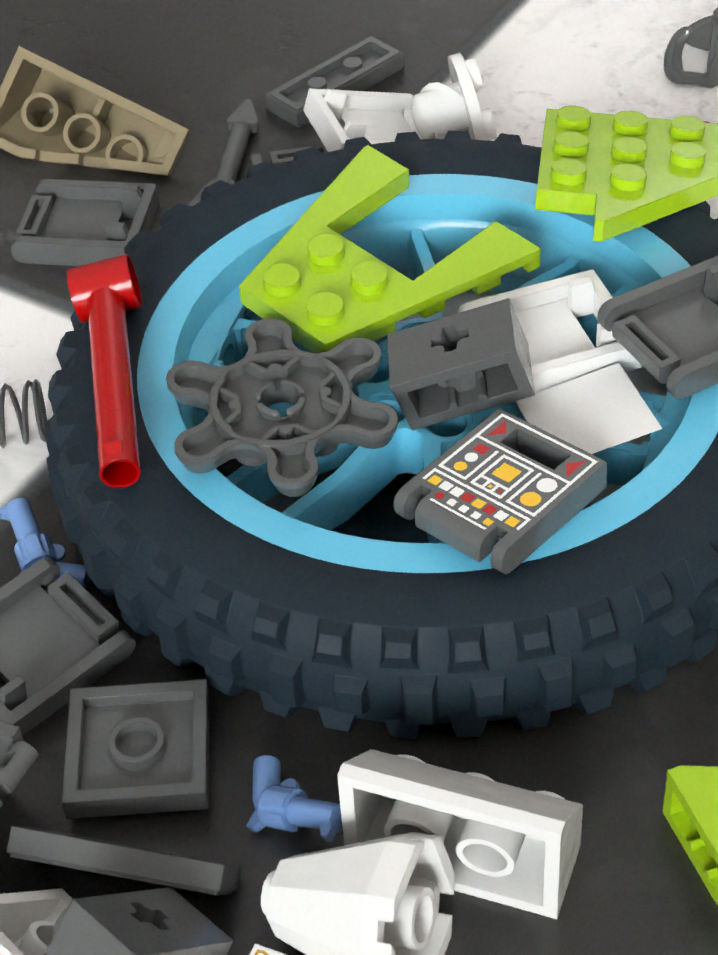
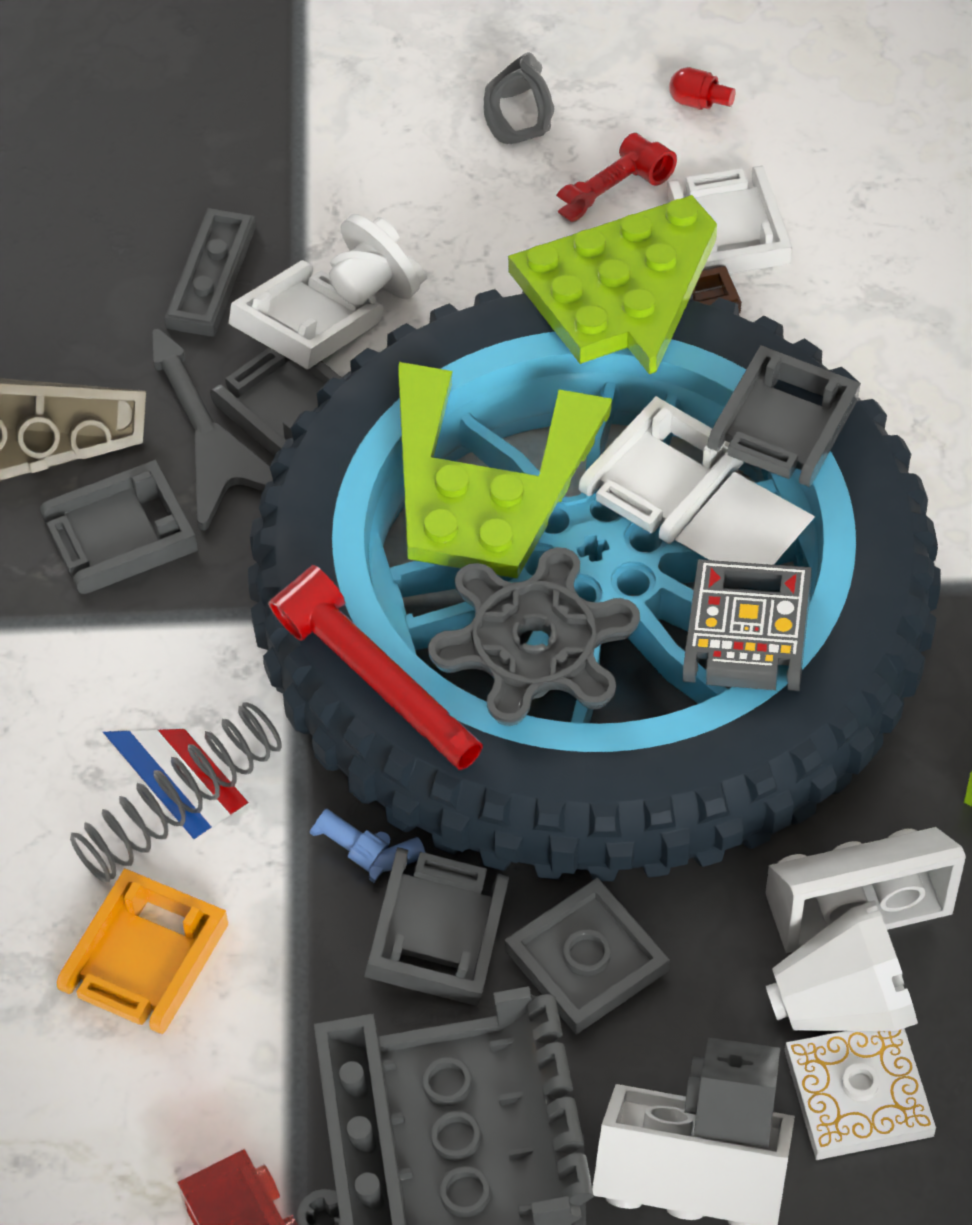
camera: 35 degrees left, 10 degrees up
(124, 860) = (655, 1037): dark grey tile -> none
(286, 805) = (726, 938): medium blue piece -> none
(460, 364) = (662, 529): dark grey brick -> none

